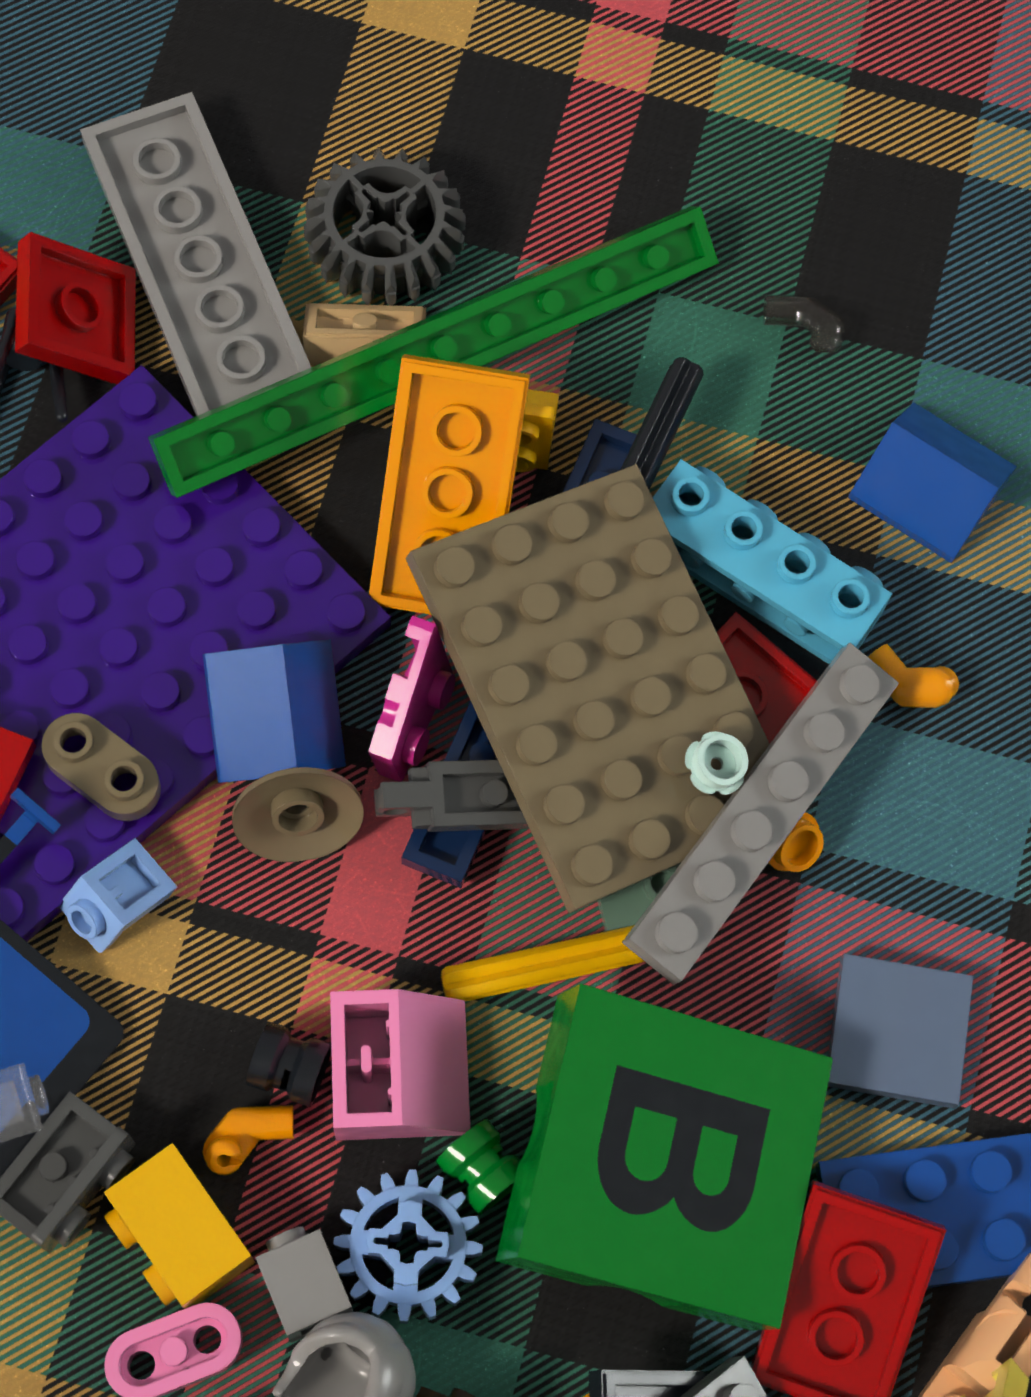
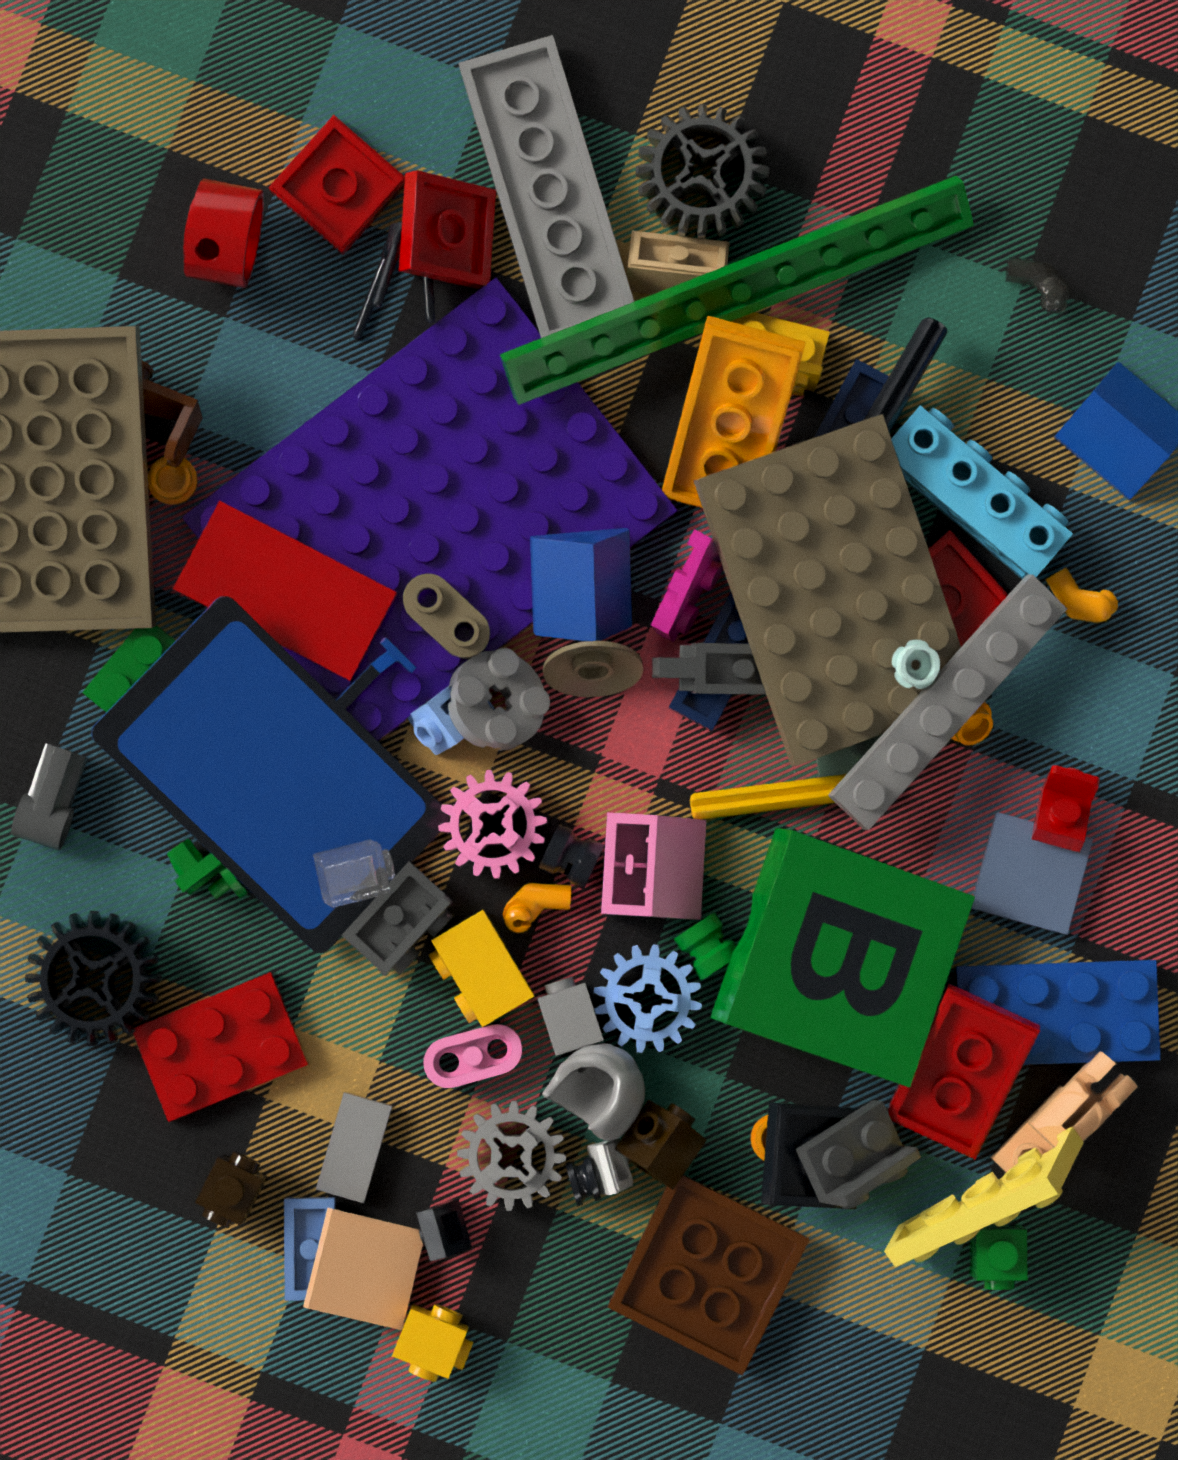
camera: 10 degrees right, 15 degrees up
(158, 1015) = (475, 809): none -> bright pink gear
(192, 840) = (517, 682): none -> light grey plate
(931, 937) = (1064, 808): none -> red bracket

